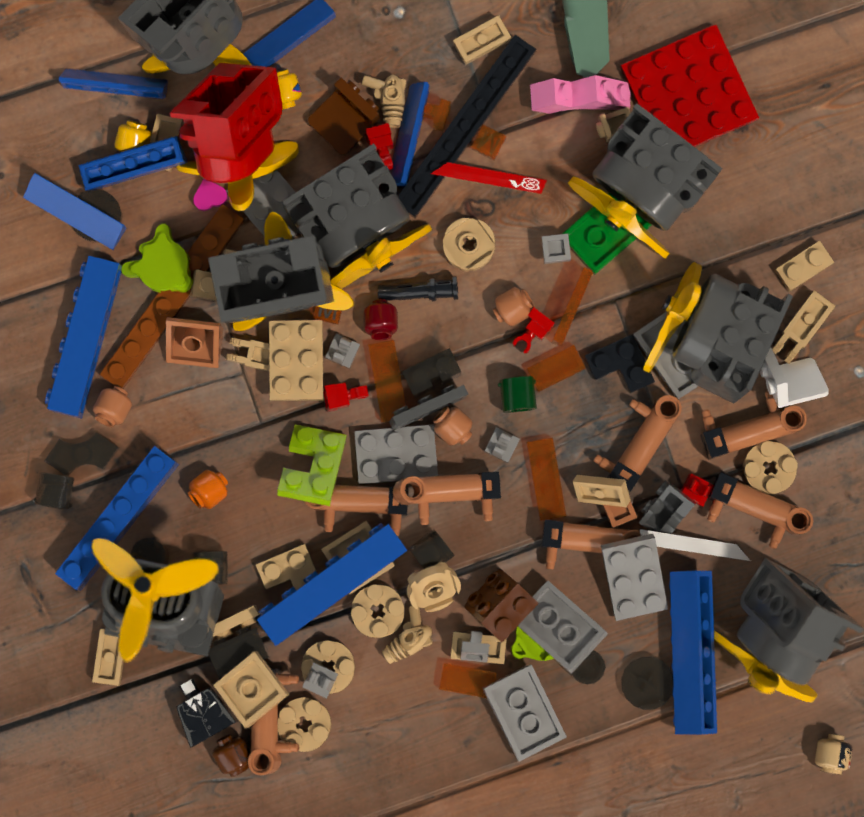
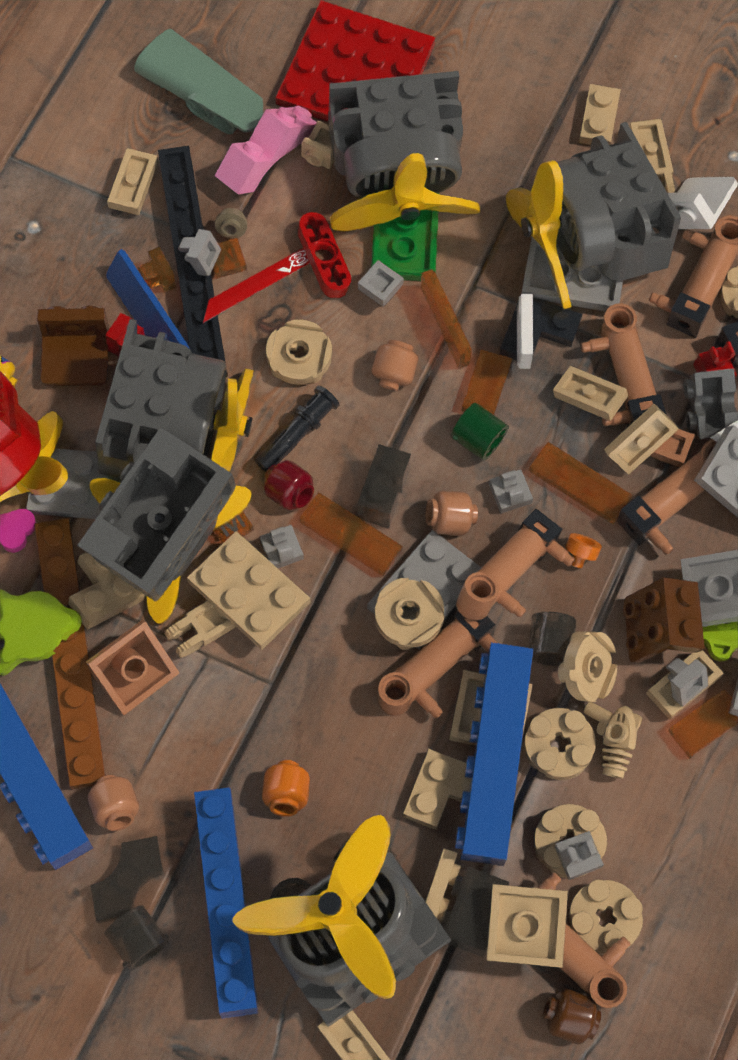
camera: 50 degrees left, 15 degrees down
(202, 713) = (502, 1005): black torso -> none
(320, 483) = (384, 667): lime plate -> none
(337, 396) = (323, 584): red piece -> none
(379, 451) = (407, 632): none -> tan plate
(391, 97) = (97, 292): tan piece -> none
(427, 406) = (411, 516): dark grey plate -> none
(470, 129) = (201, 251): none -> light grey tile
(504, 518) = (582, 548): none -> orange tile
(511, 124) = (231, 223): none -> dark tan plate
(538, 327) = (435, 364): red piece -> none
(546, 176) = (321, 268): none -> red beam
(603, 362) = (525, 331): none -> white tile
(605, 434) = (590, 393): none -> tan plate

